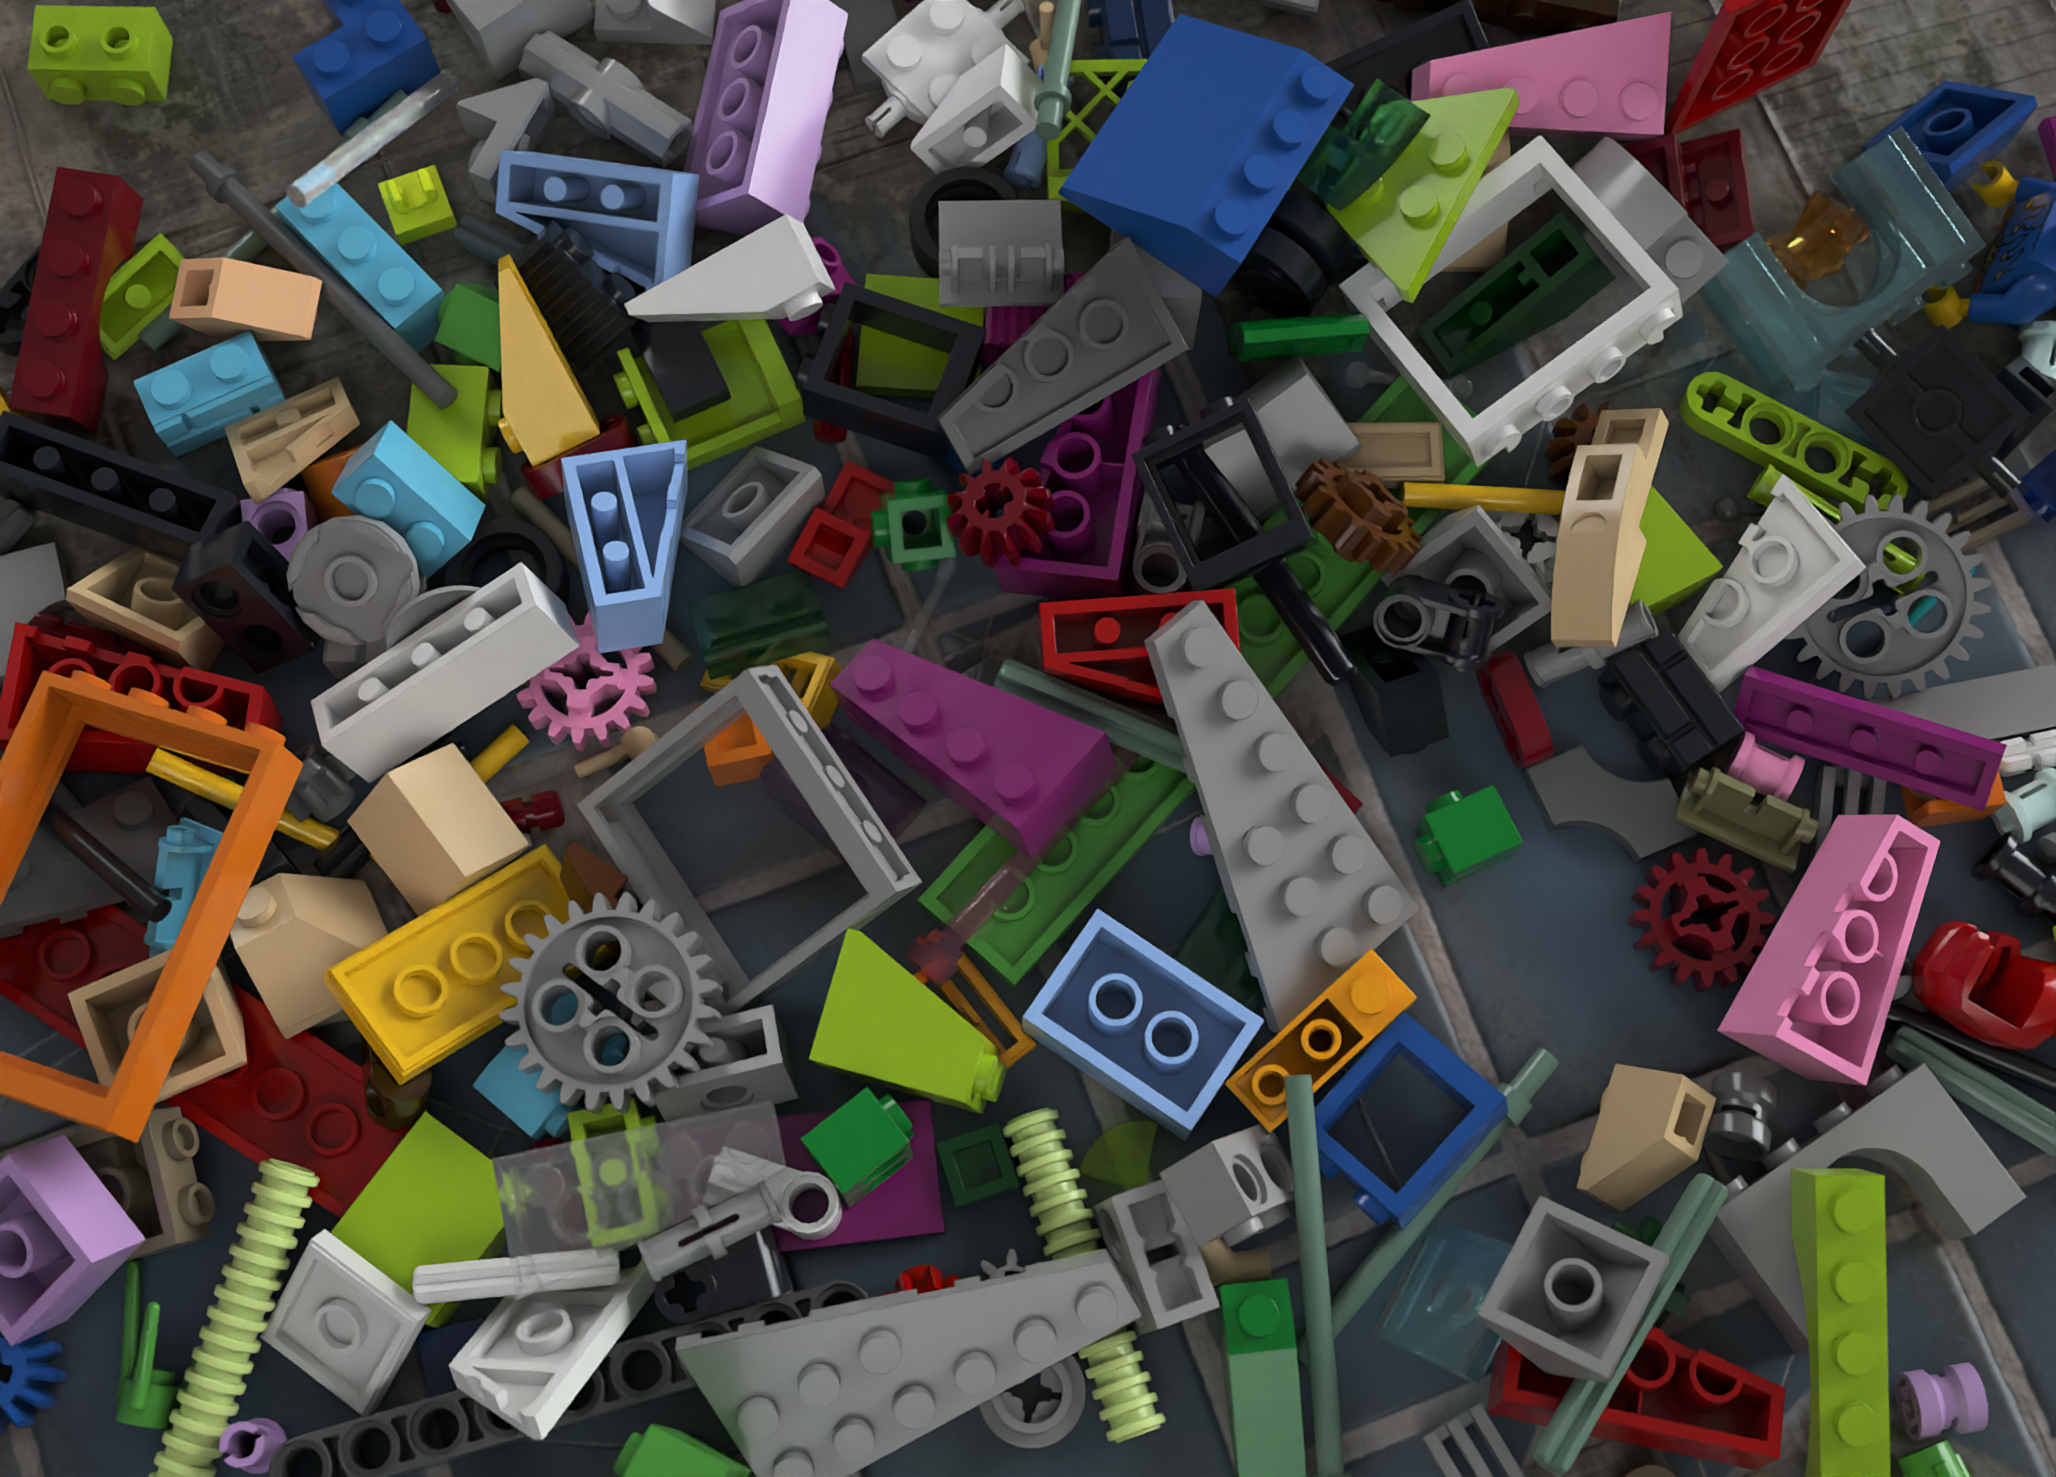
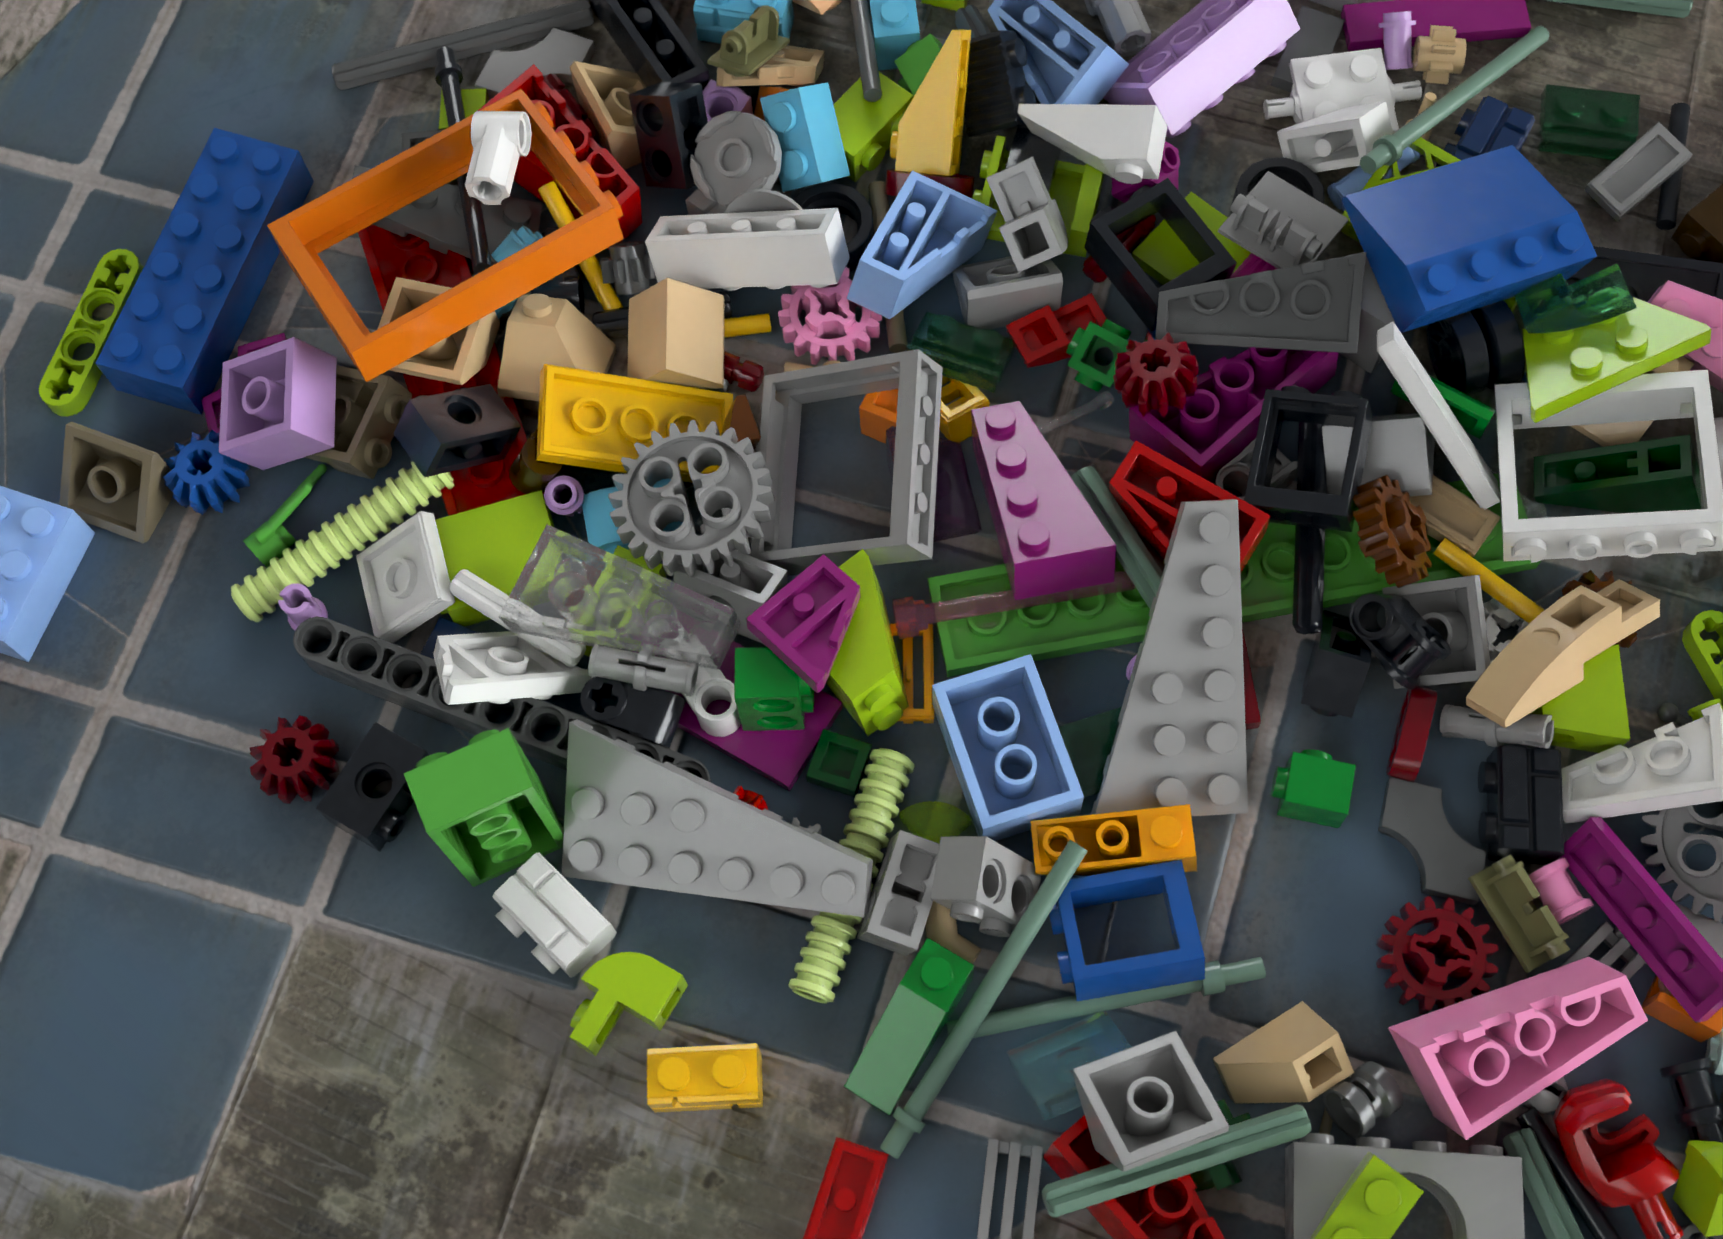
camera: 45 degrees right, 5 degrees down
(79, 760) = (497, 143): none -> white piece
(262, 432) = (750, 43): none -> olive hinge
(278, 1117) = (456, 429): none -> black brick
(459, 1114) = (555, 490): none -> lavender pin
(731, 423) = (1032, 220): none -> light grey brick
(859, 1052) = (808, 620): none -> magenta wing
(1051, 1419) = (764, 948): light grey gear -> none
(1317, 362) = (1437, 416): none -> white tile

